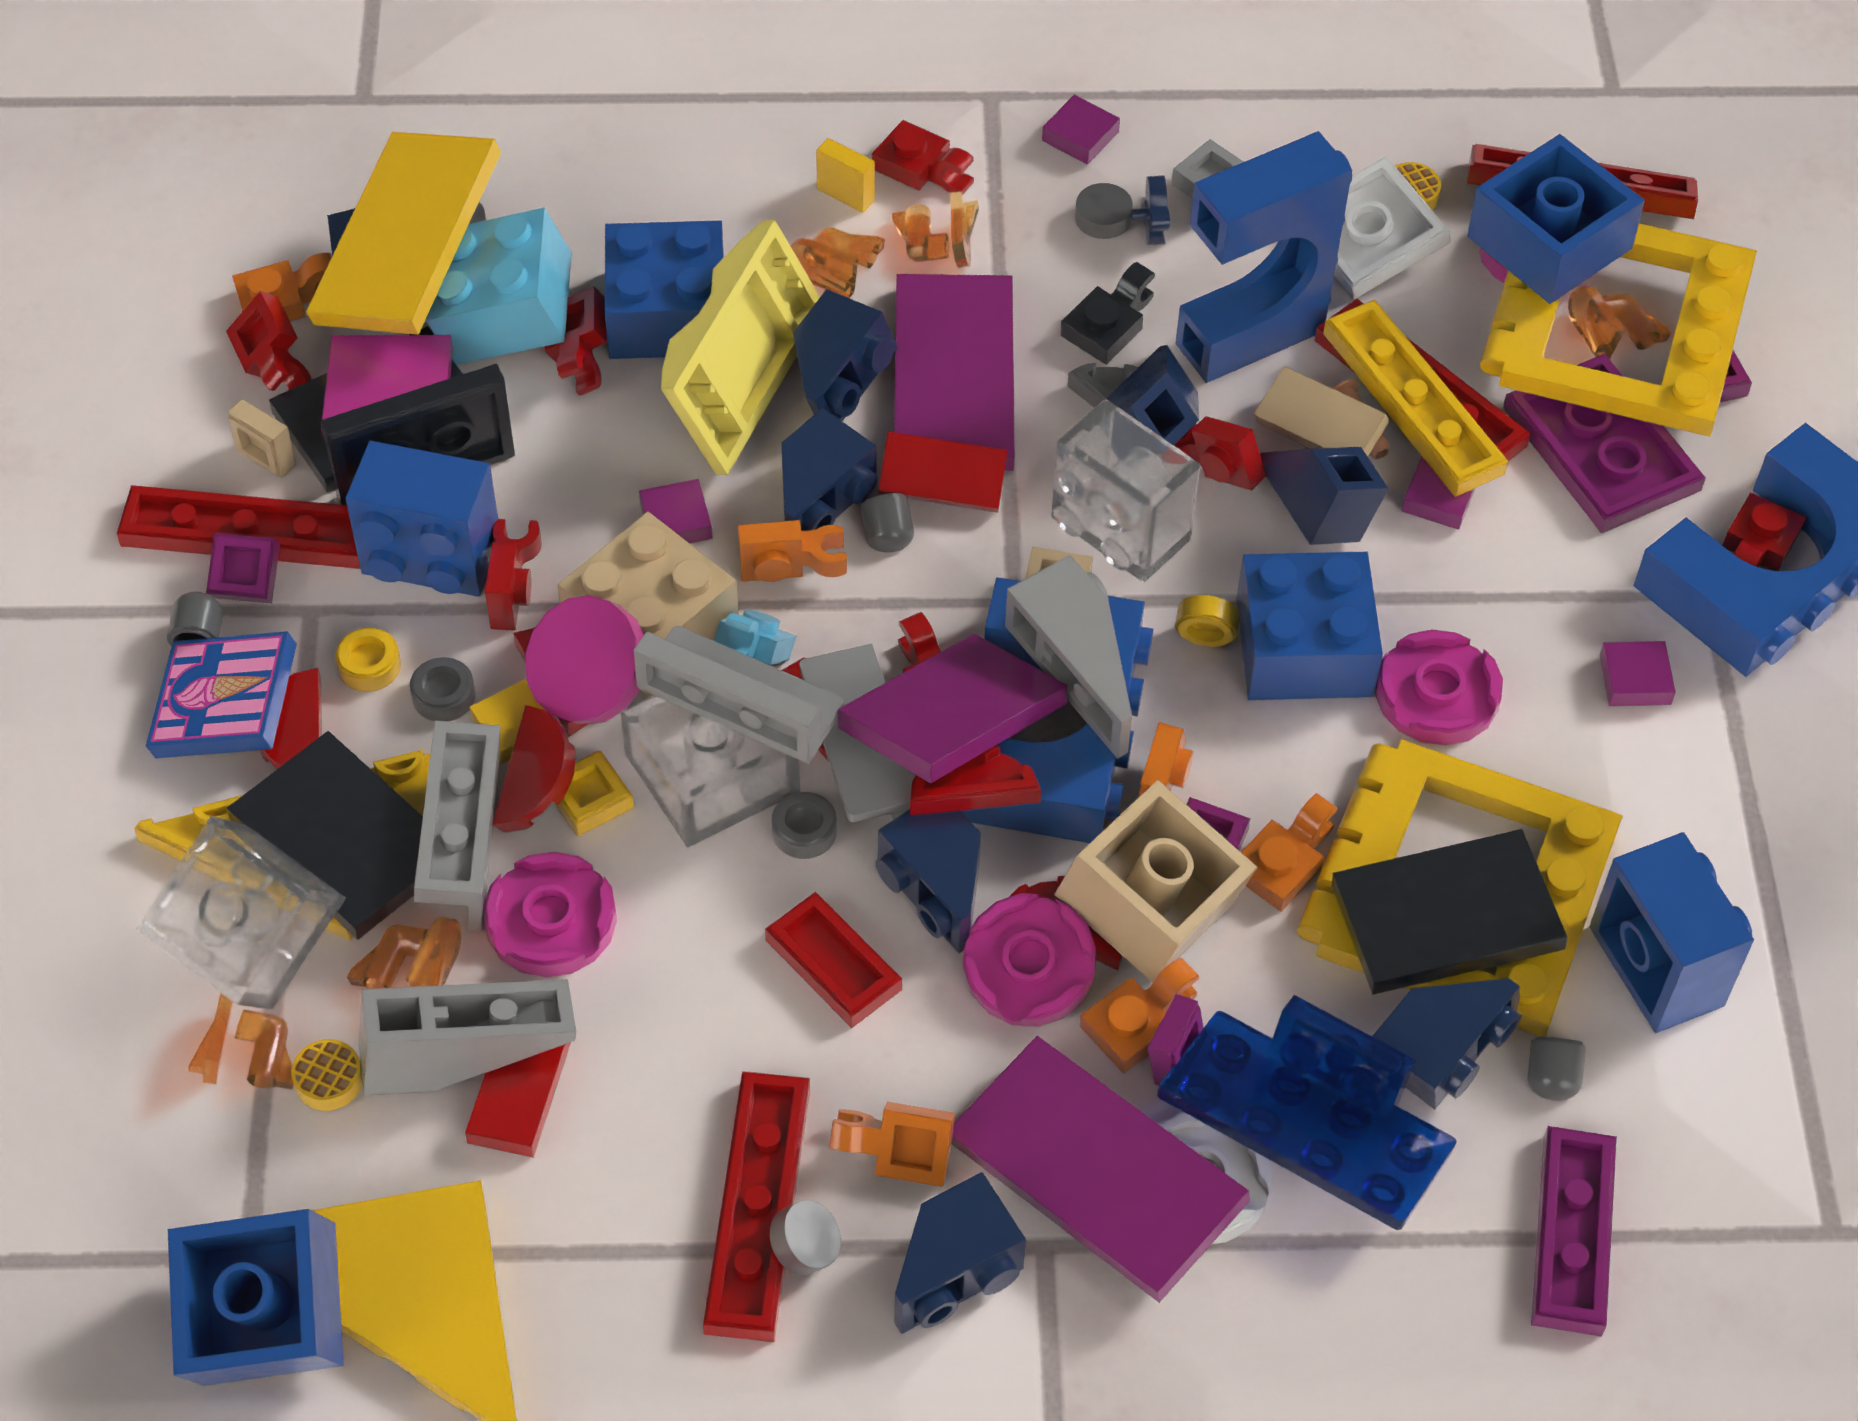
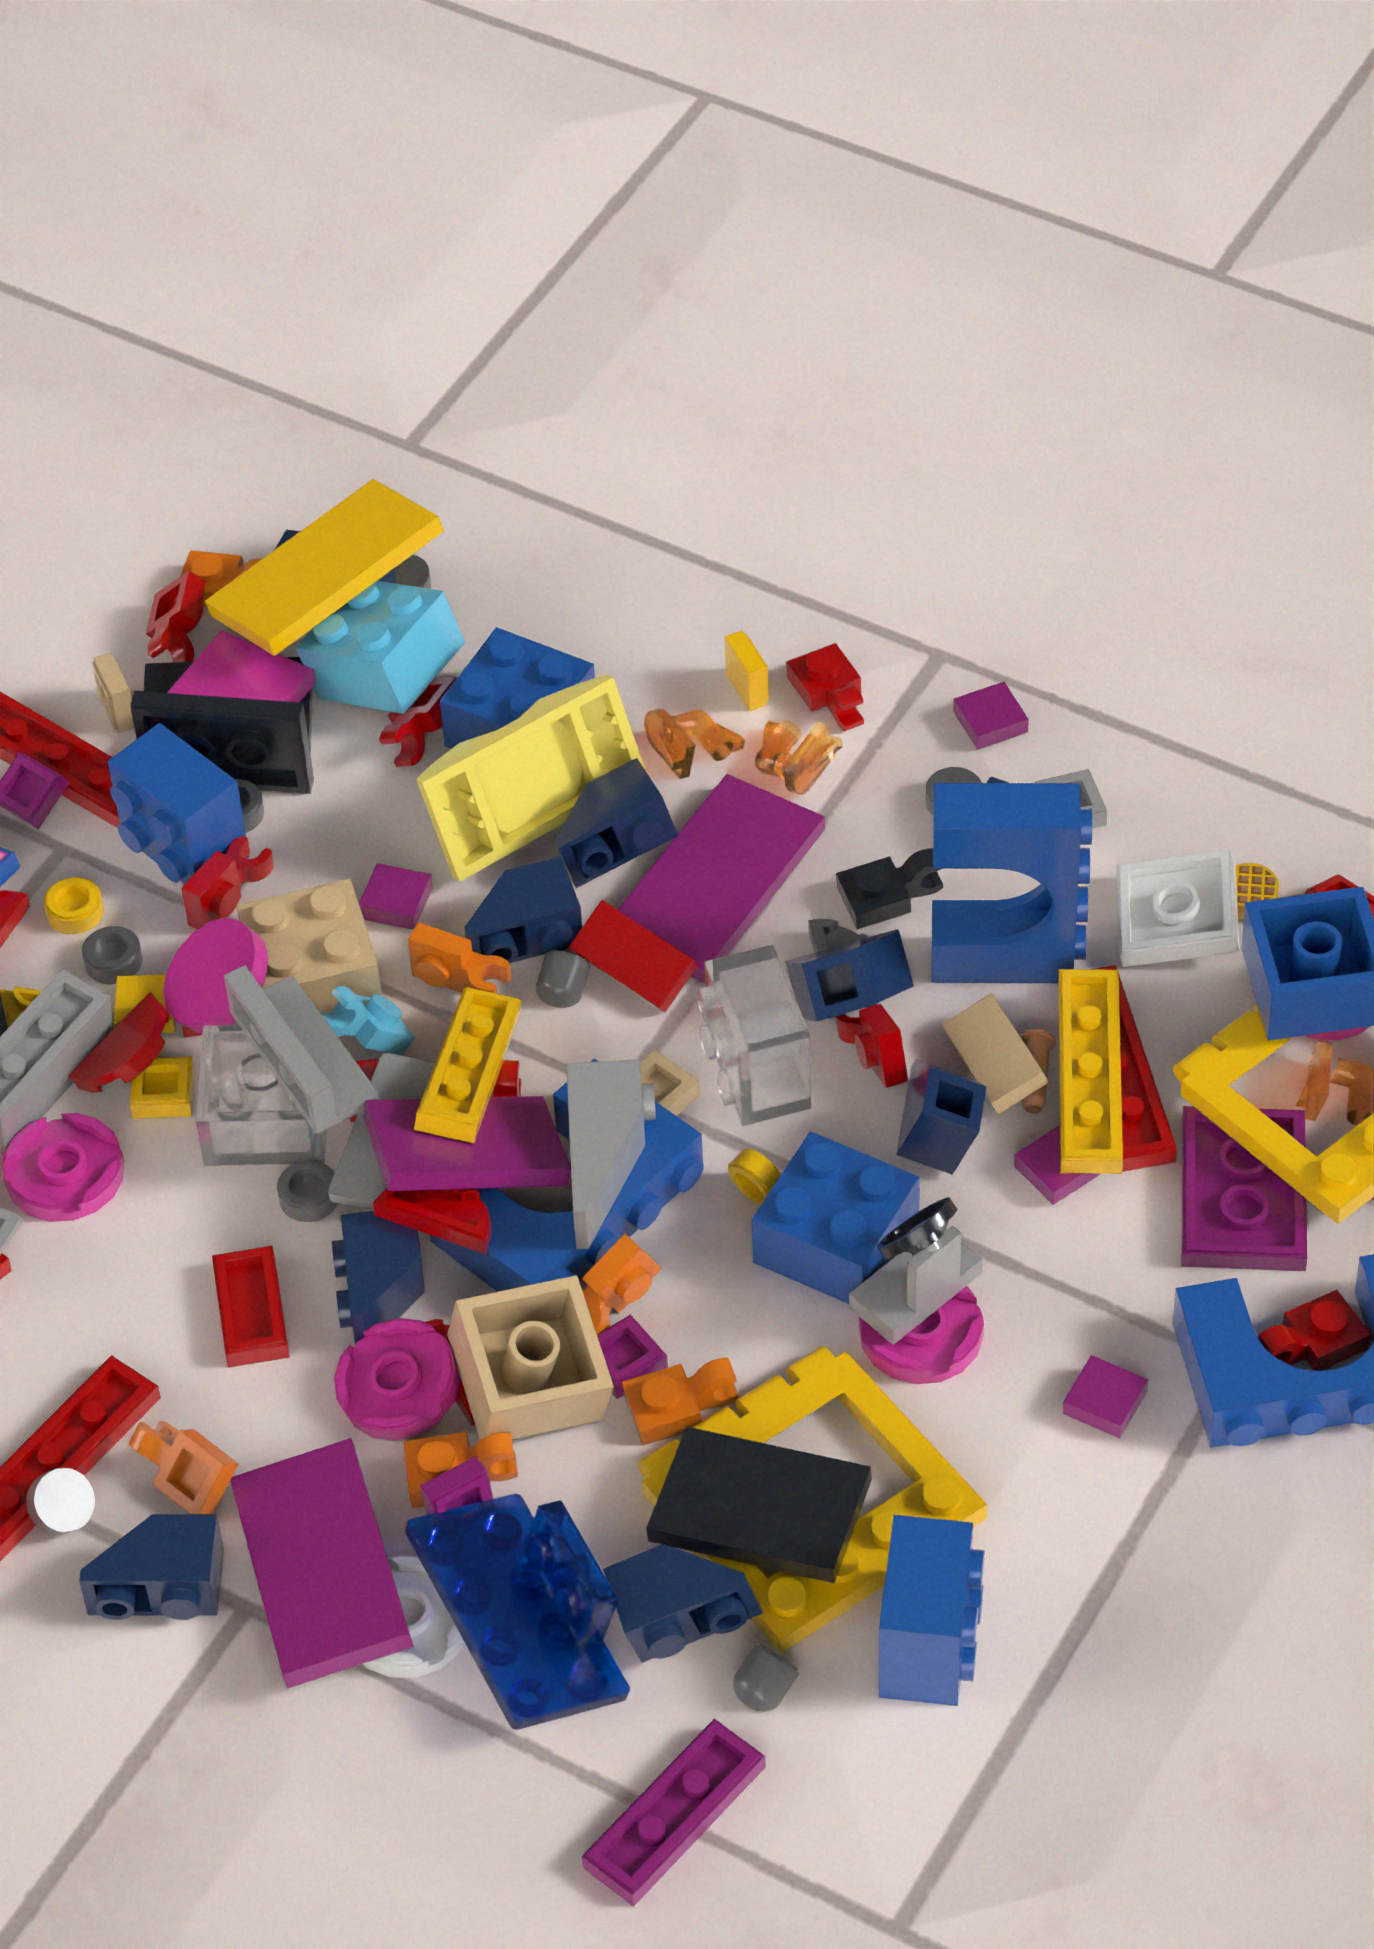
camera: 35 degrees right, 5 degrees down
(893, 636) = (468, 1065): none -> yellow tile
(1424, 634) = (922, 1277): none -> light grey piece

